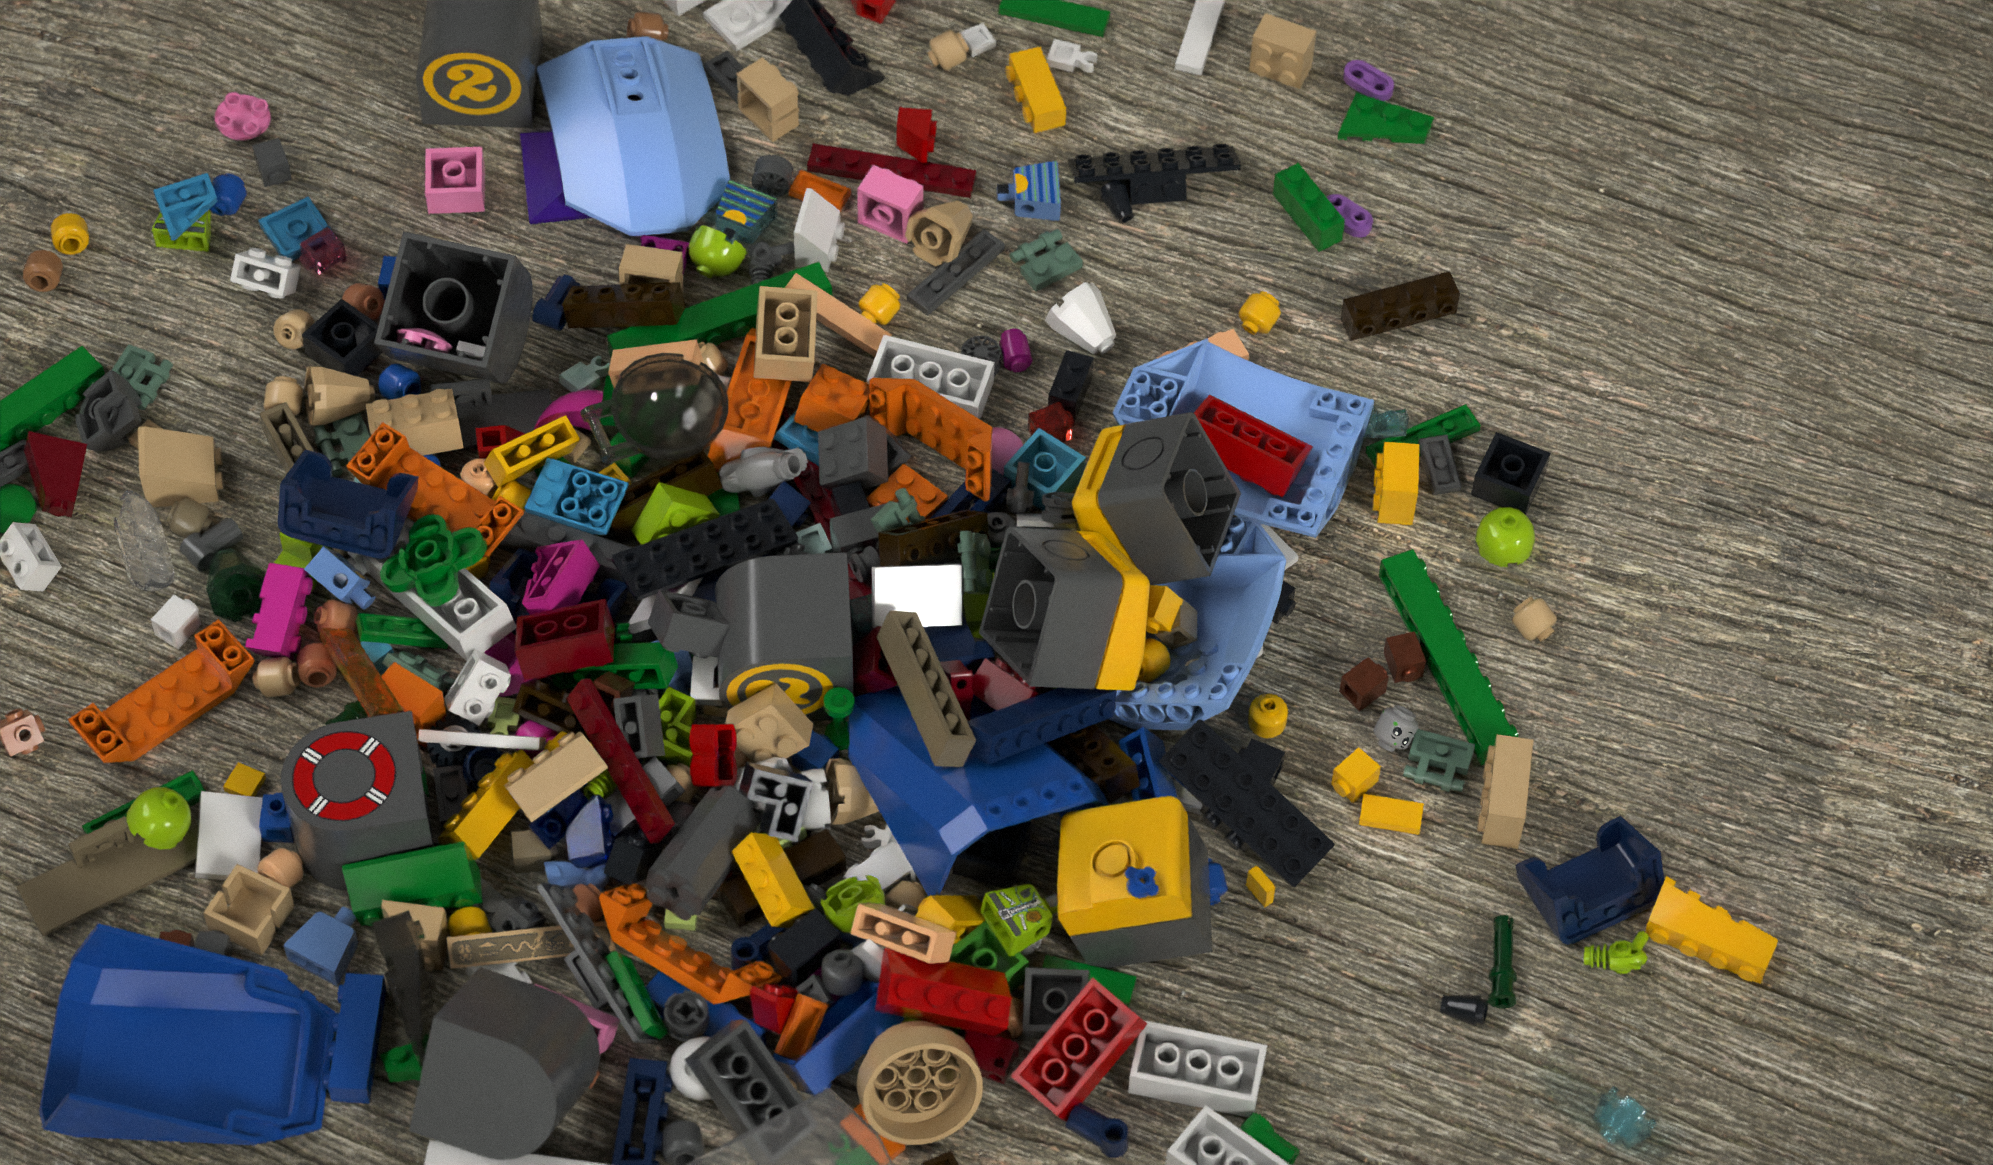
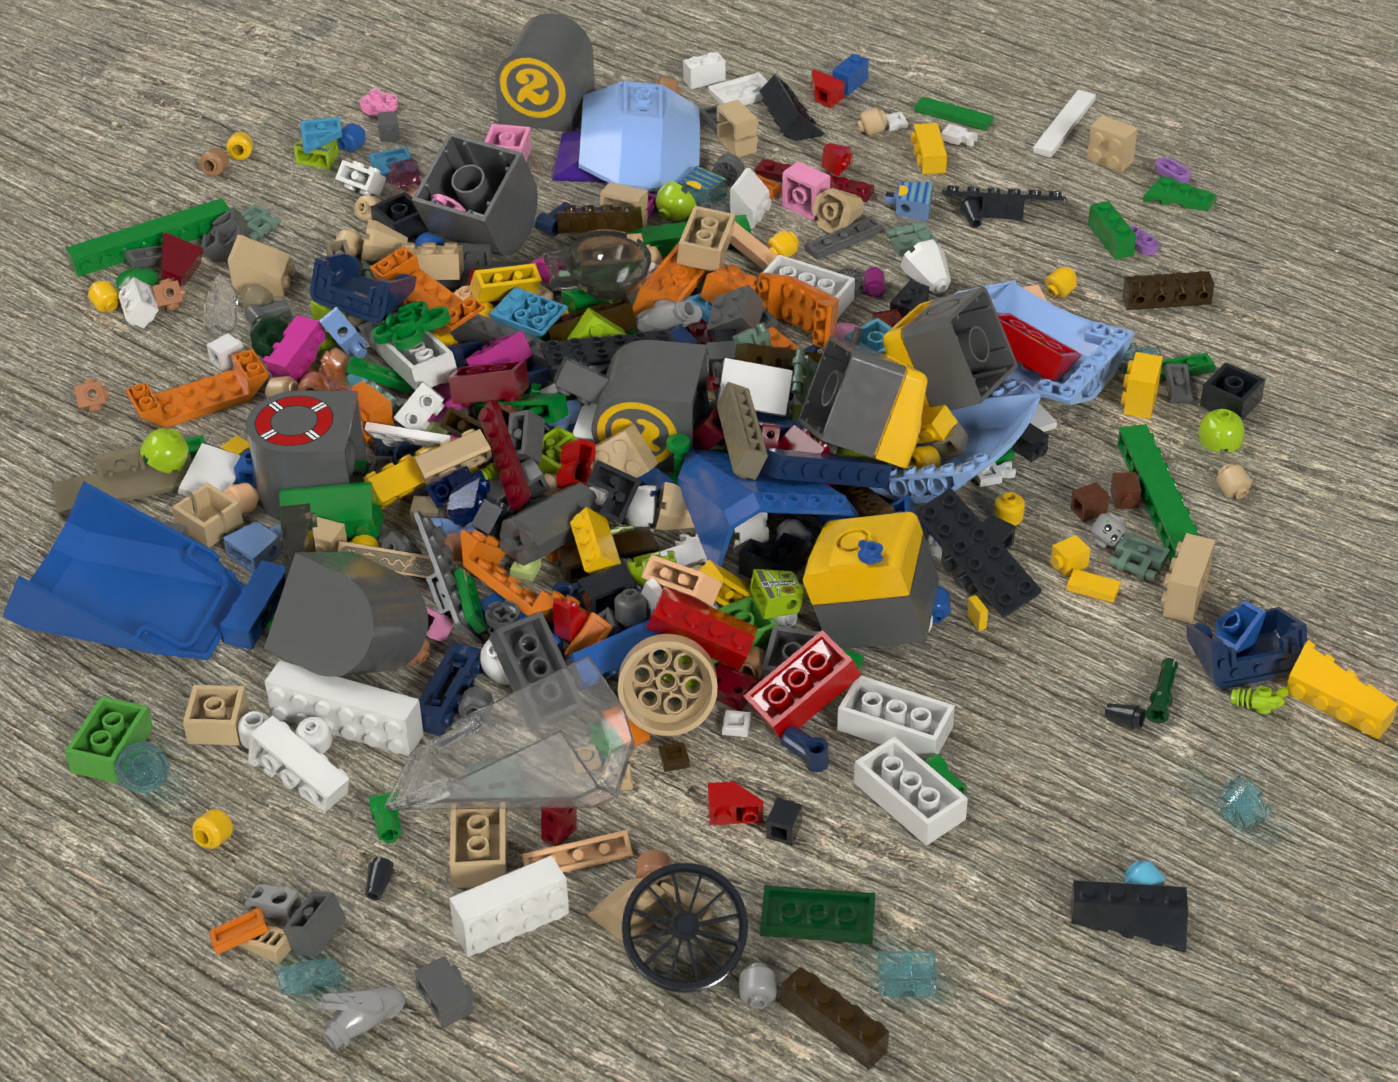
camera: 15 degrees right, 15 degrees down
(58, 526) = (168, 286): none -> nougat brick
(1004, 1105) = (736, 723): none -> white tile
(1576, 855) = (1240, 626): none -> blue slope

